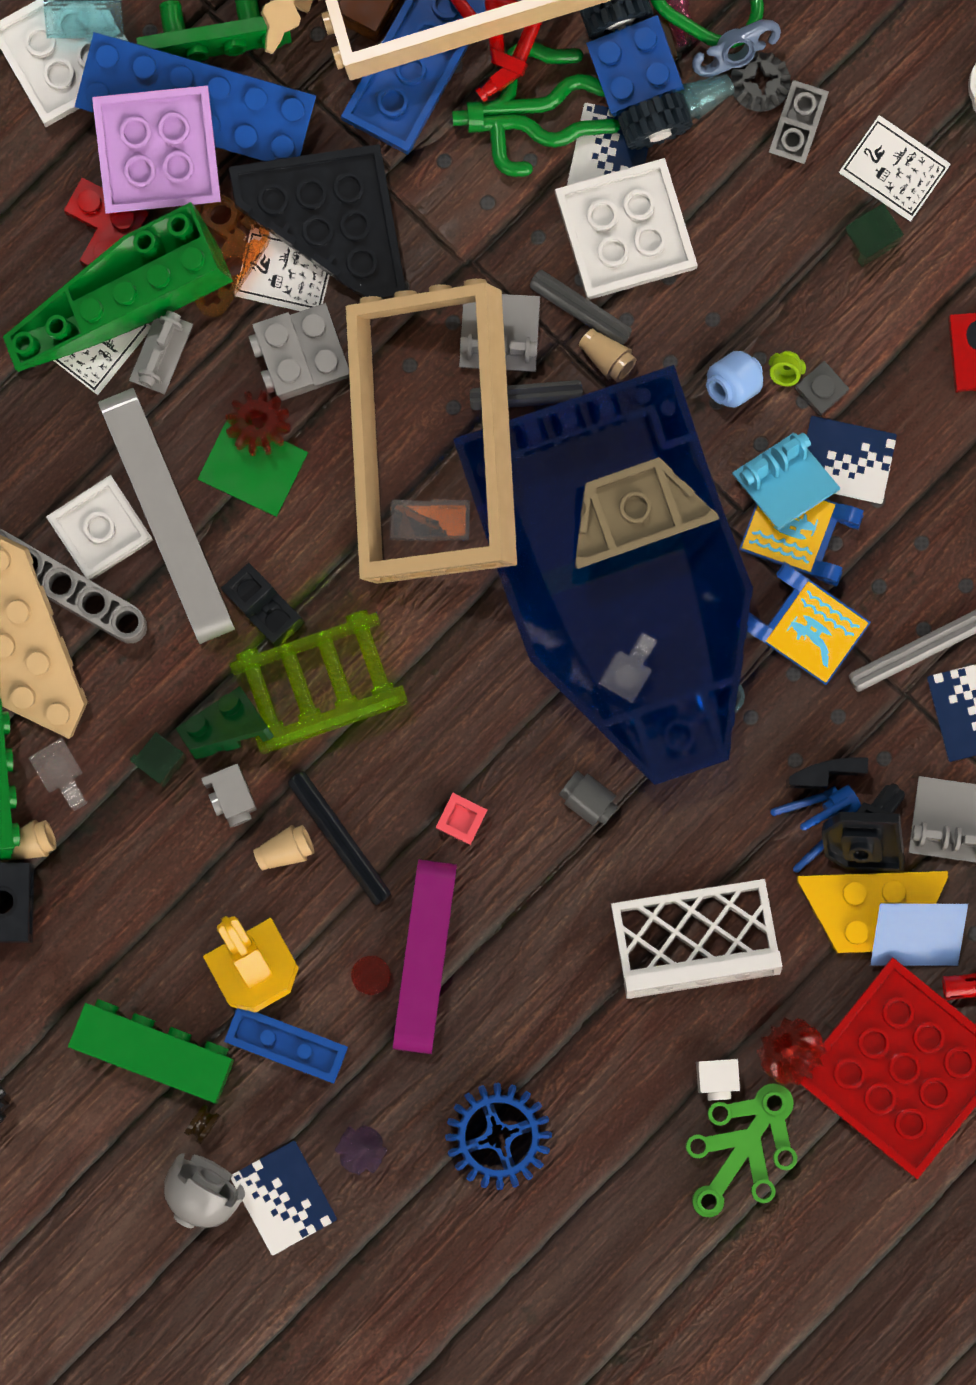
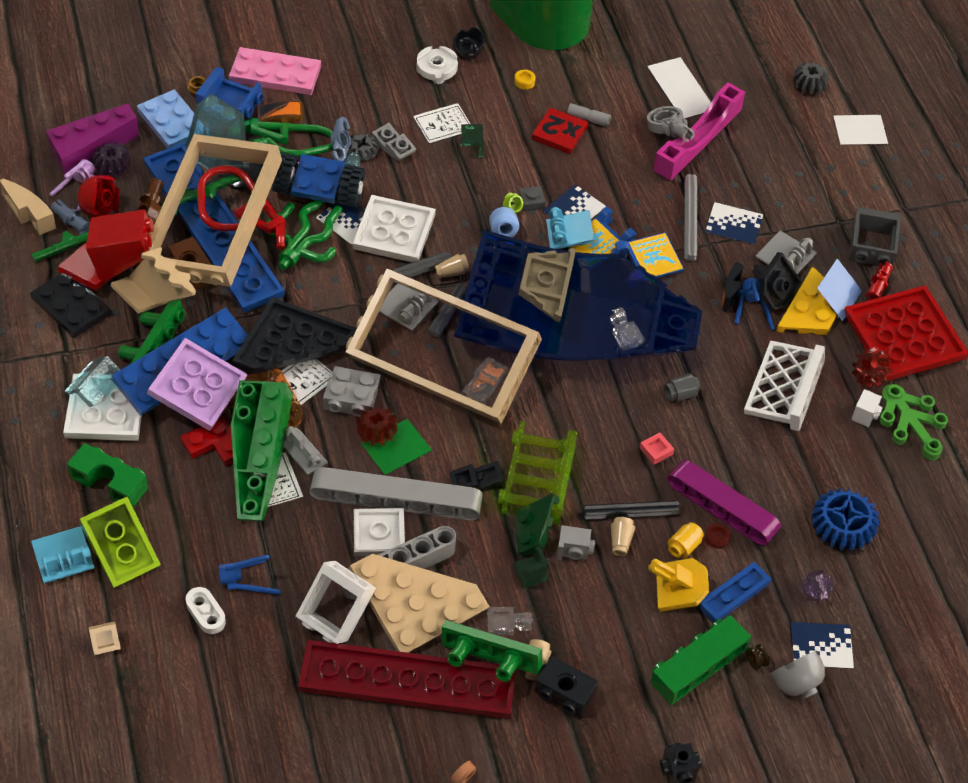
camera: 60 degrees left, 30 degrees down
(327, 937) = (685, 540): none -> yellow brick

